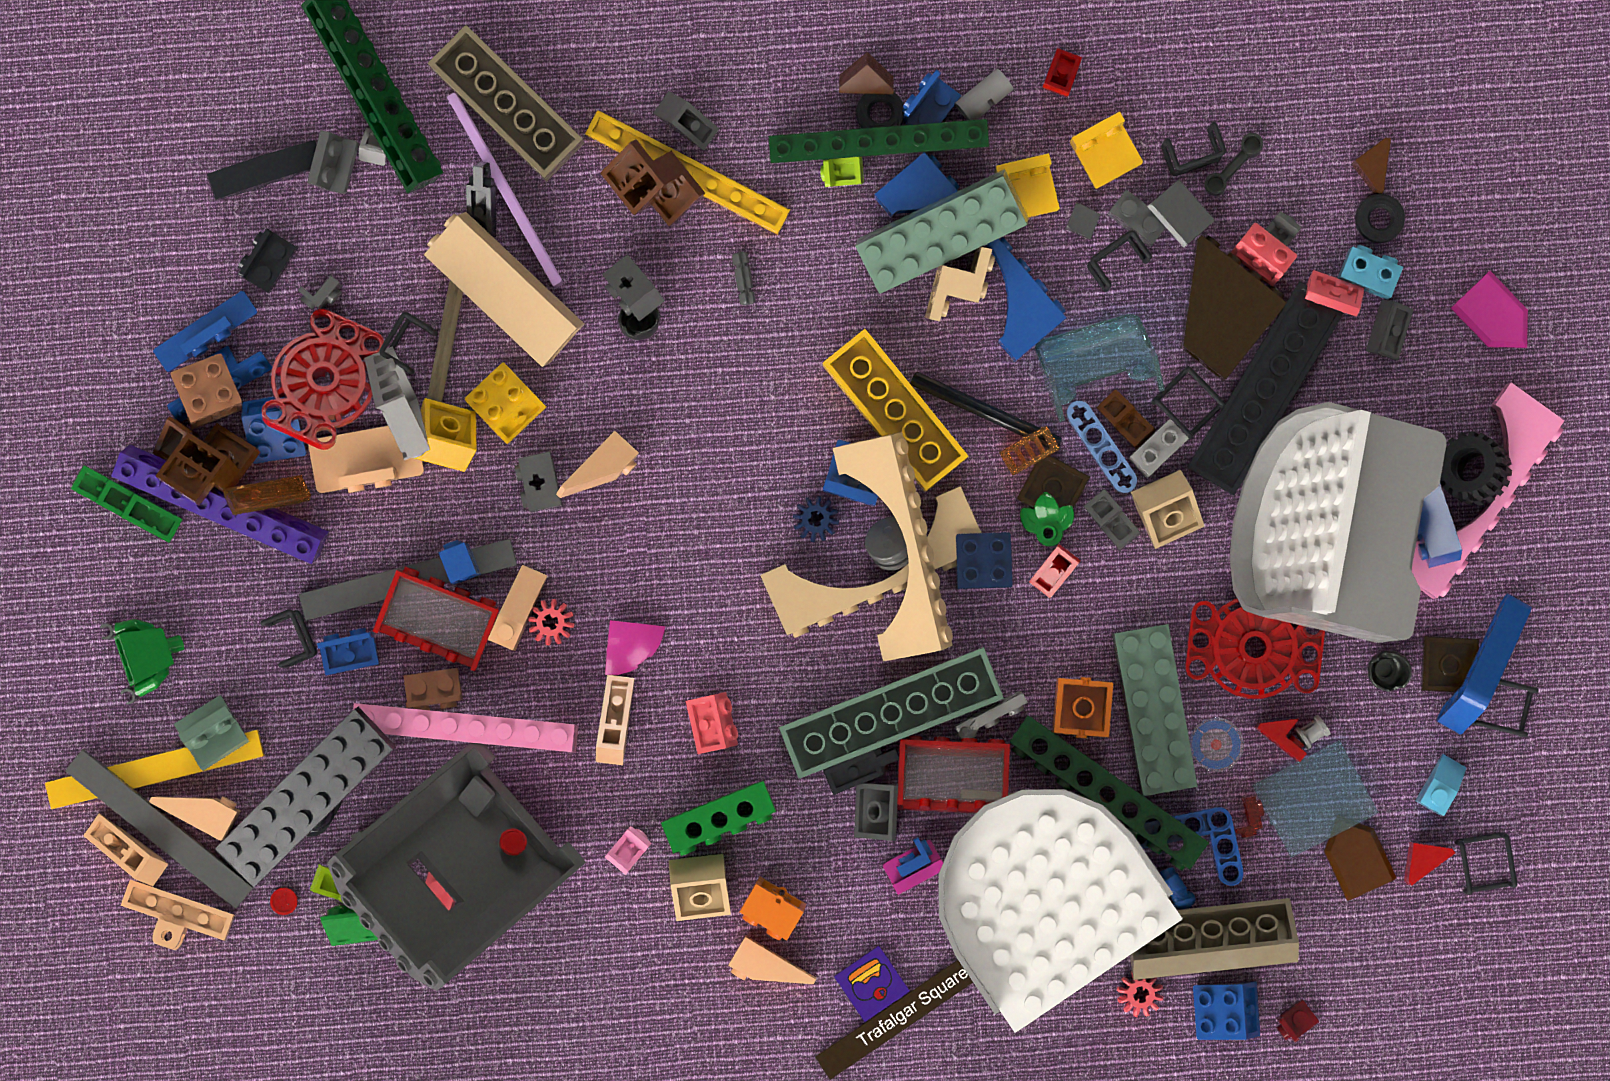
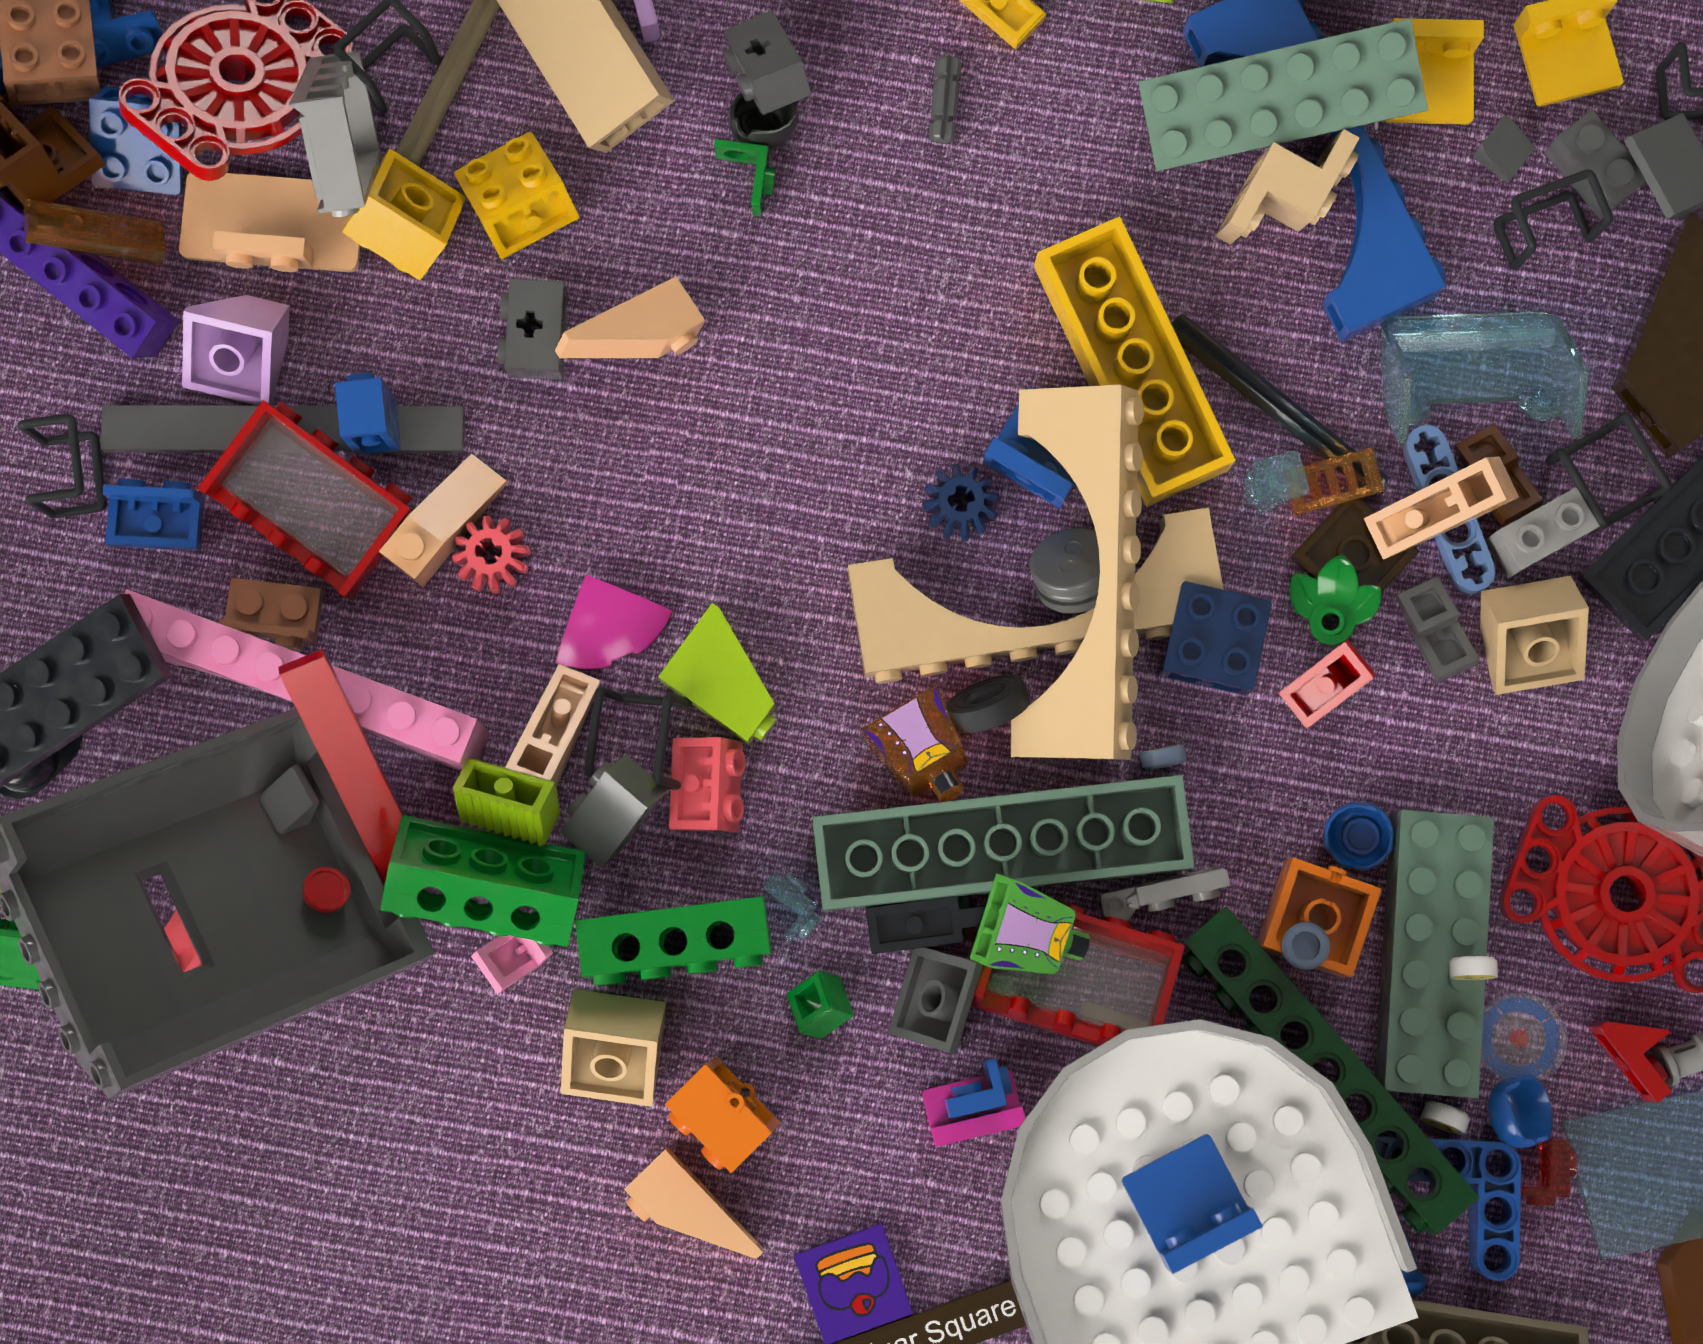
camera: 10 degrees right, 5 degrees down
(367, 540) = (235, 347): none -> lavender slope
(513, 772) = (345, 753): none -> tile
(600, 805) = (484, 865): none -> green brick
(602, 765) = (506, 801): none -> lime brick
(649, 354) = (751, 154): none -> green bracket
(663, 753) = (612, 810): none -> dark grey brick
(684, 729) = (667, 702): none -> black piece
(704, 659) = (721, 679): none -> lime slope
(777, 772) = (791, 894): none -> clear light blue bracket
(811, 831) = (820, 1004): none -> green slope
(830, 668) = (920, 746): none -> clear orange torso
(862, 634) = (988, 703): none -> black tyre
(917, 760) = (1026, 930): none -> bright green torso
(971, 637) = (1163, 757): none -> sand blue tile
(996, 459) = (1275, 481): none -> clear light blue bracket
(1041, 890) = (1190, 1203): none -> blue bracket
(1077, 727) = (1305, 946): none -> sand blue tile
(1094, 653) = (1359, 835): none -> blue hair
(1095, 450) = (1442, 506): none -> light nougat slope
(1174, 715) = (1473, 968): none -> white tile
(1183, 801) = (1445, 1117): none -> white tile
(1224, 786) = (1520, 1111): none -> blue hair

